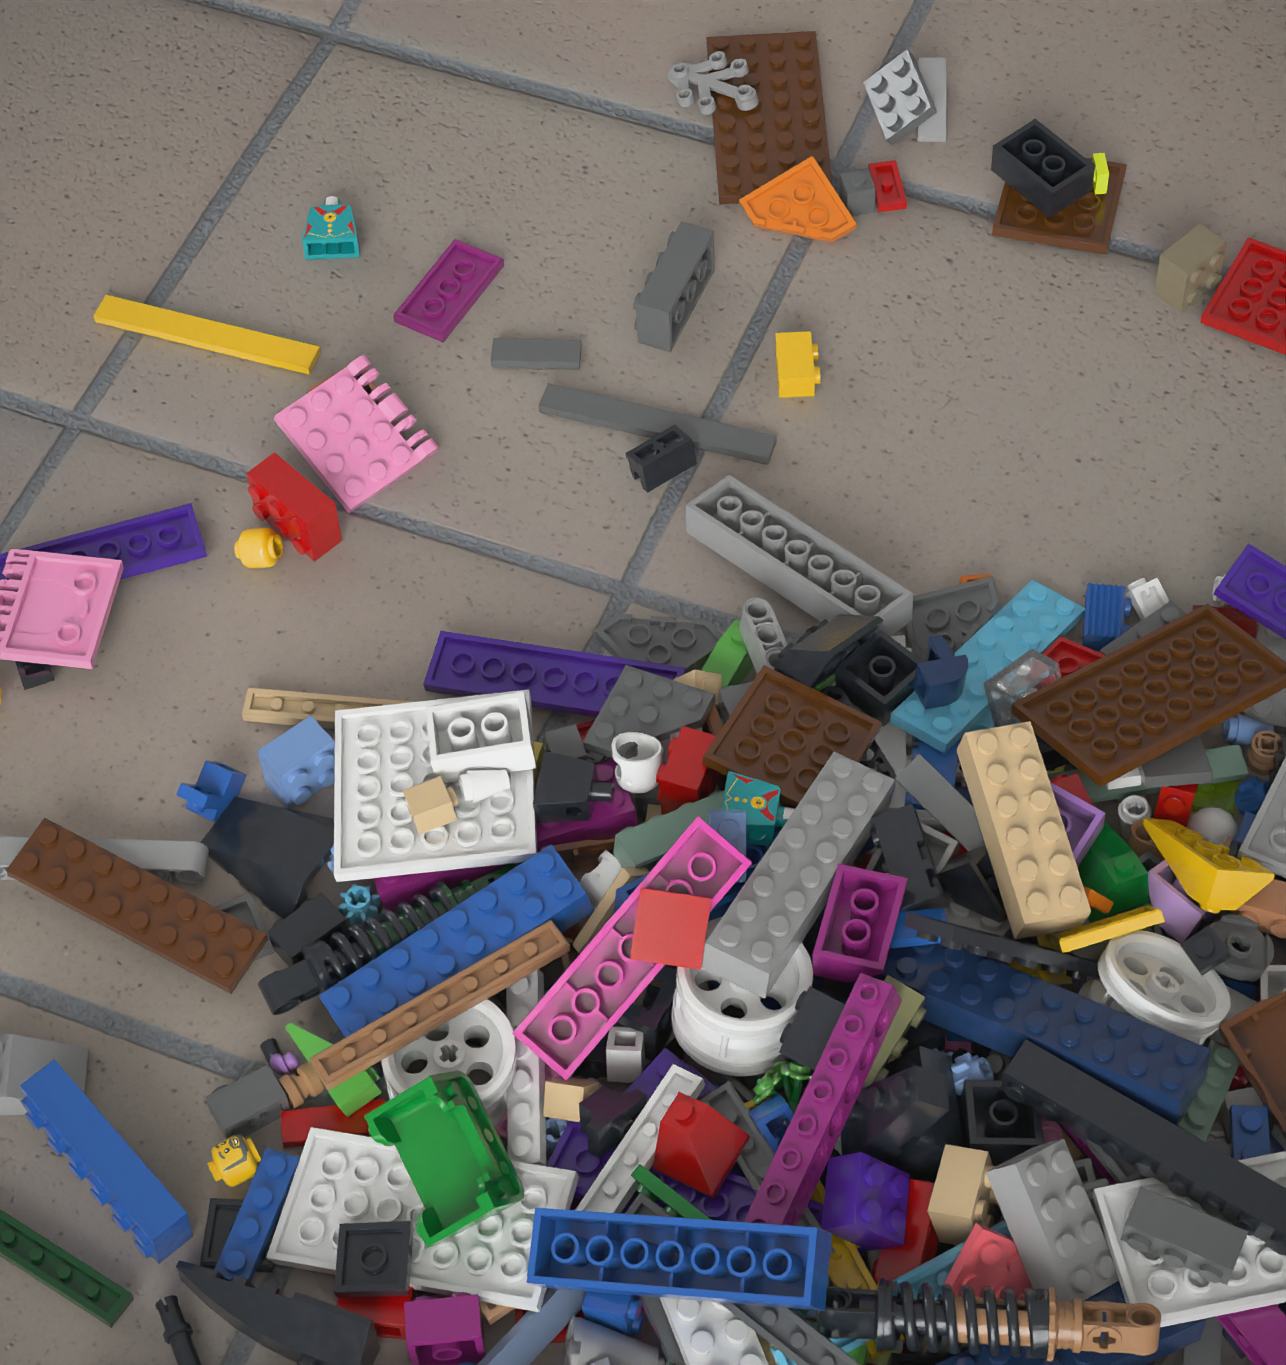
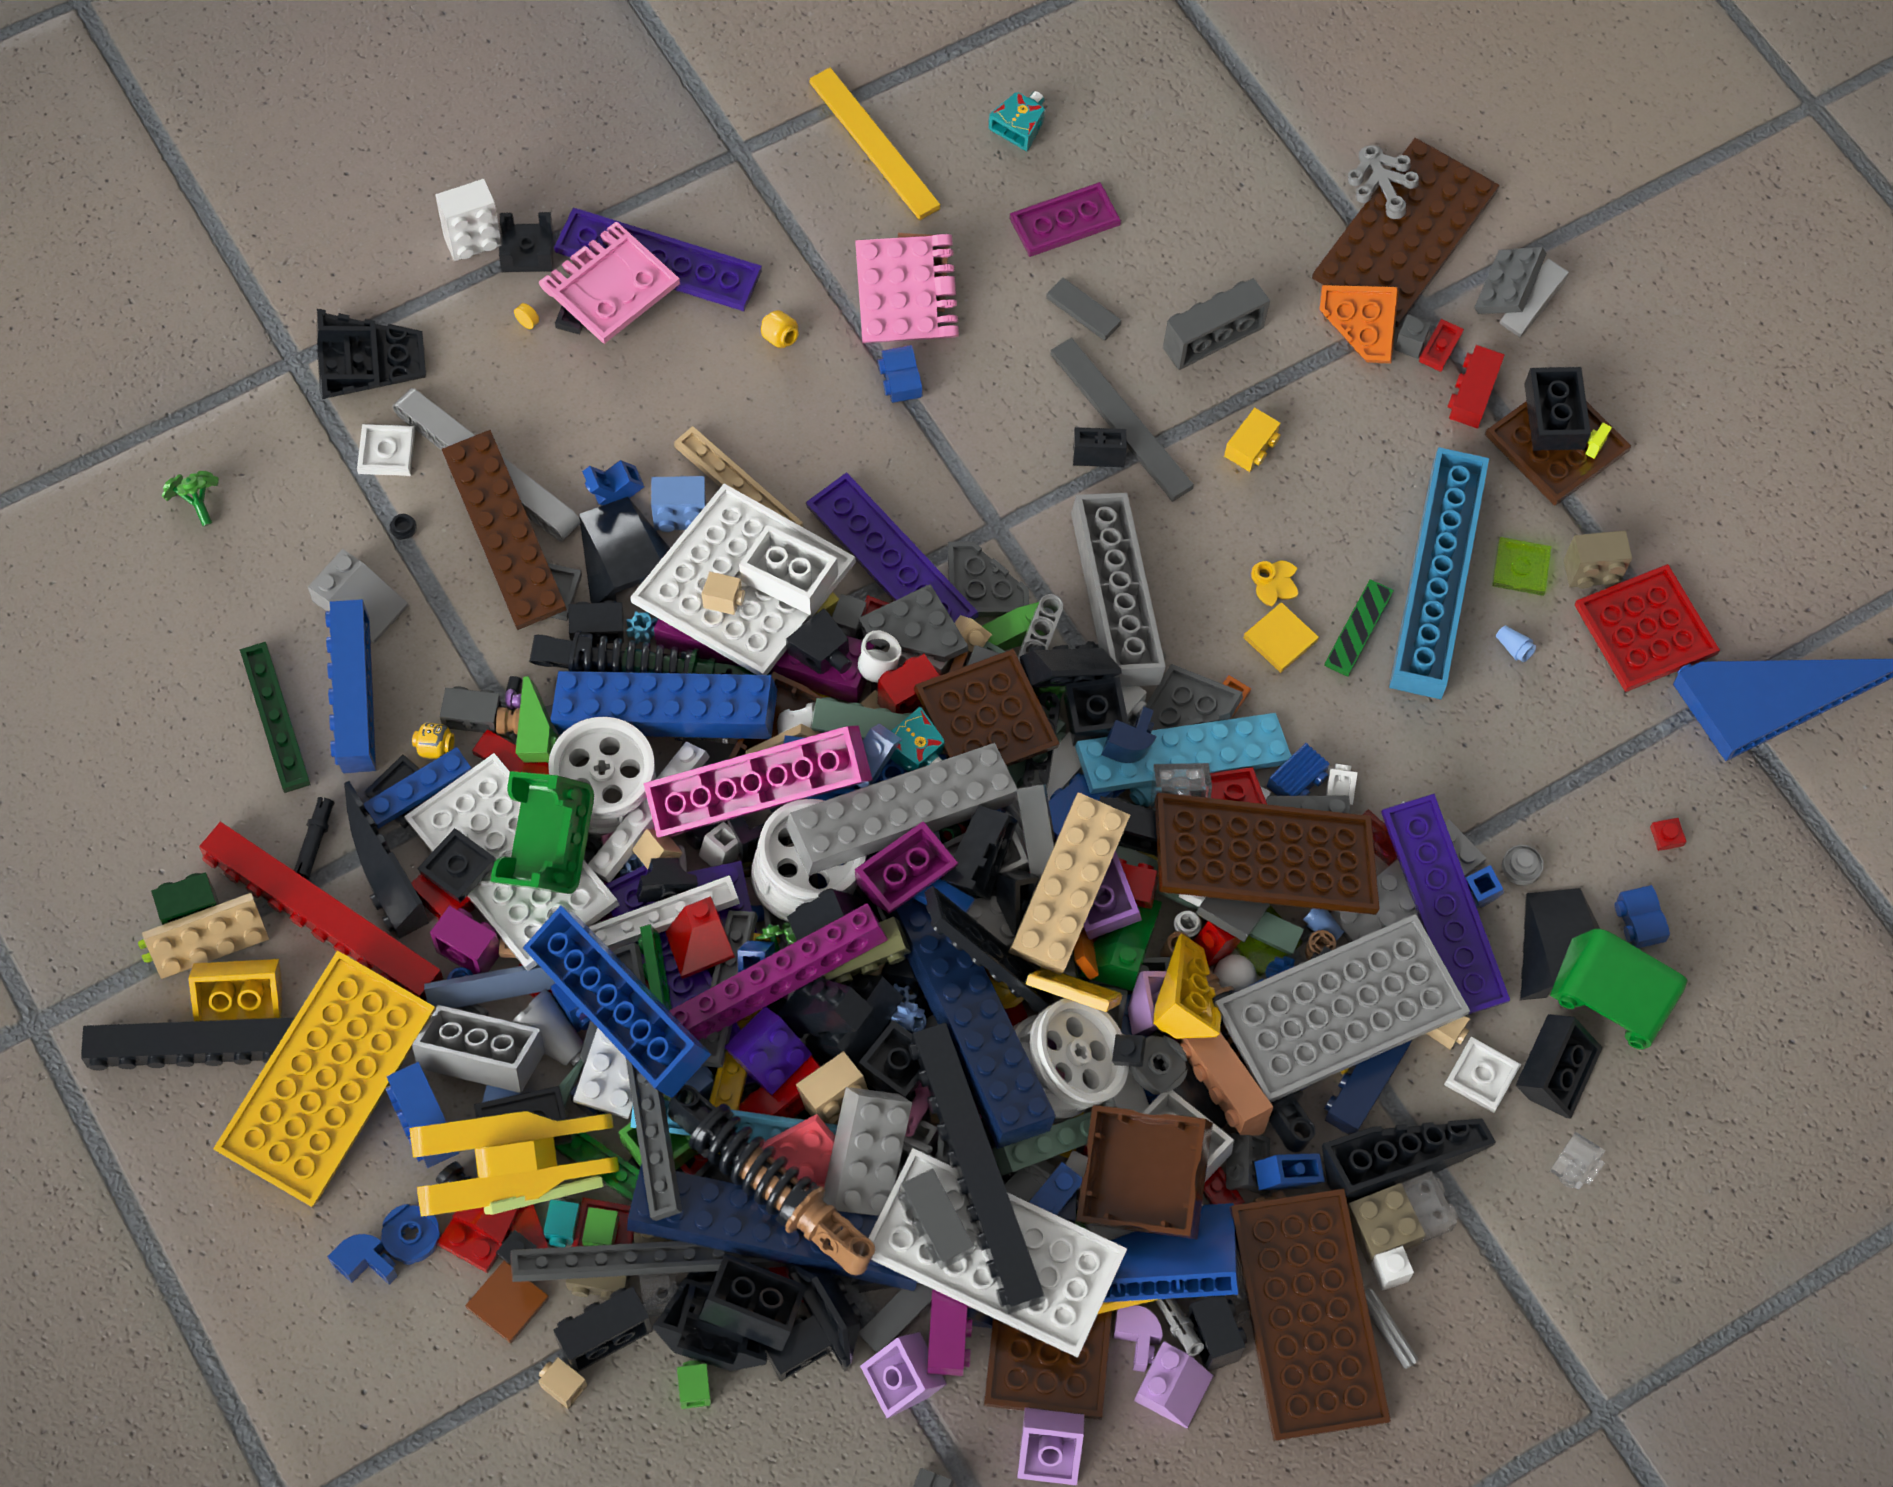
camera: 30 degrees right, 10 degrees up
(20, 976) = (403, 526): none -> black plate
(294, 507) = (820, 315): red brick -> none
(414, 513) = (901, 374): none -> blue brick
(439, 1005) = (619, 732): medium nougat tile -> none
(481, 784) = (766, 602): white cone -> none
(670, 928) = (781, 786): tile -> none
(926, 471) = (1278, 582): none -> yellow plate
(949, 199) = (1475, 386): none -> red brick
(975, 514) = (1281, 637): none -> yellow tile
(1036, 461) = (1358, 628): none -> tile
(1067, 368) = (1439, 573): none -> dark azure brick
(1125, 320) = (1521, 566): none -> clear neon green tile
(1184, 384) = (1517, 644): none -> light blue cone

